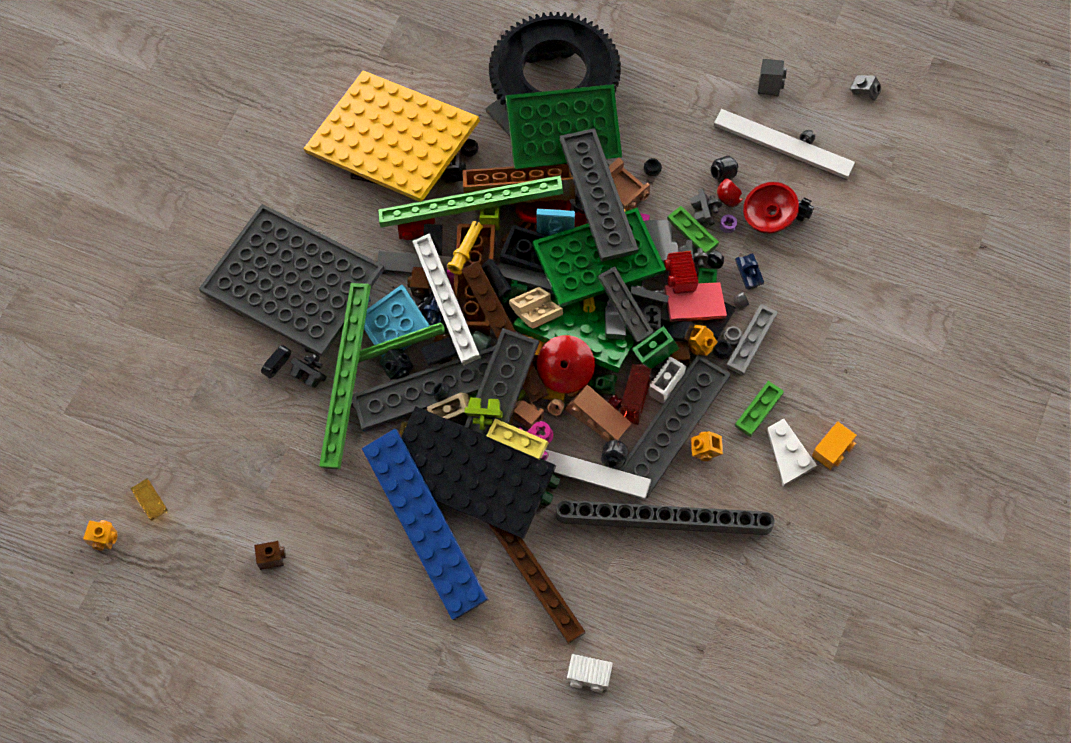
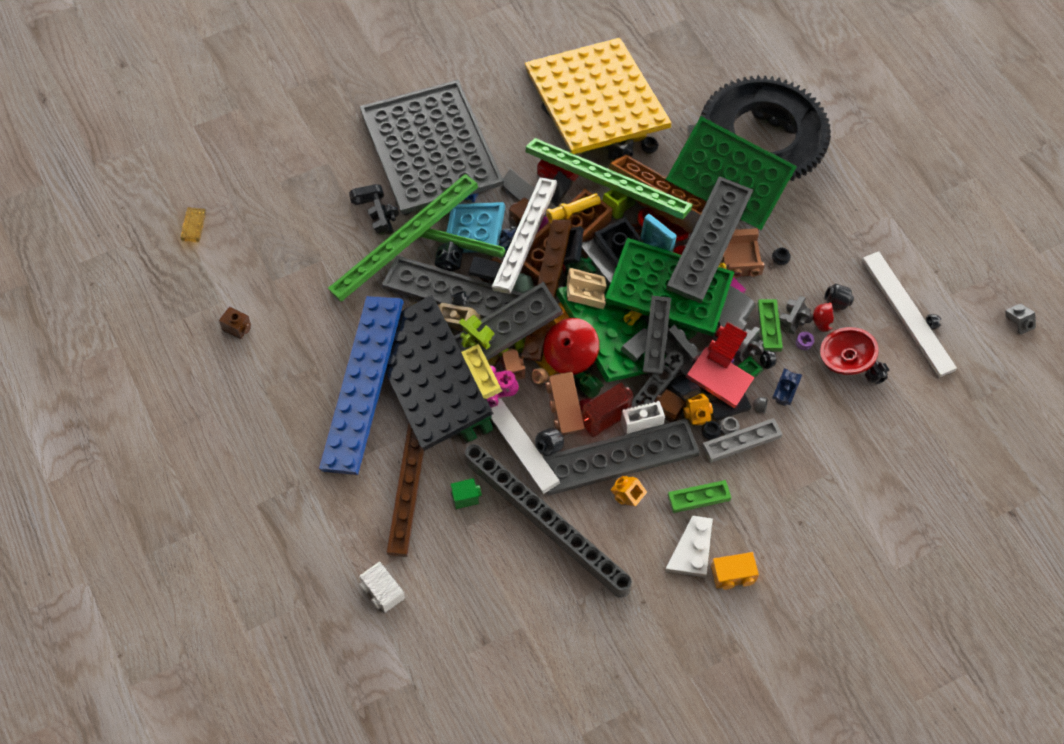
camera: 35 degrees right, 5 degrees down
(100, 535) = (137, 222): light orange brick -> none
(585, 547) = (465, 493): none -> green brick
(656, 348) = (651, 385): green brick -> none
(772, 77) = (941, 253): dark grey brick -> none

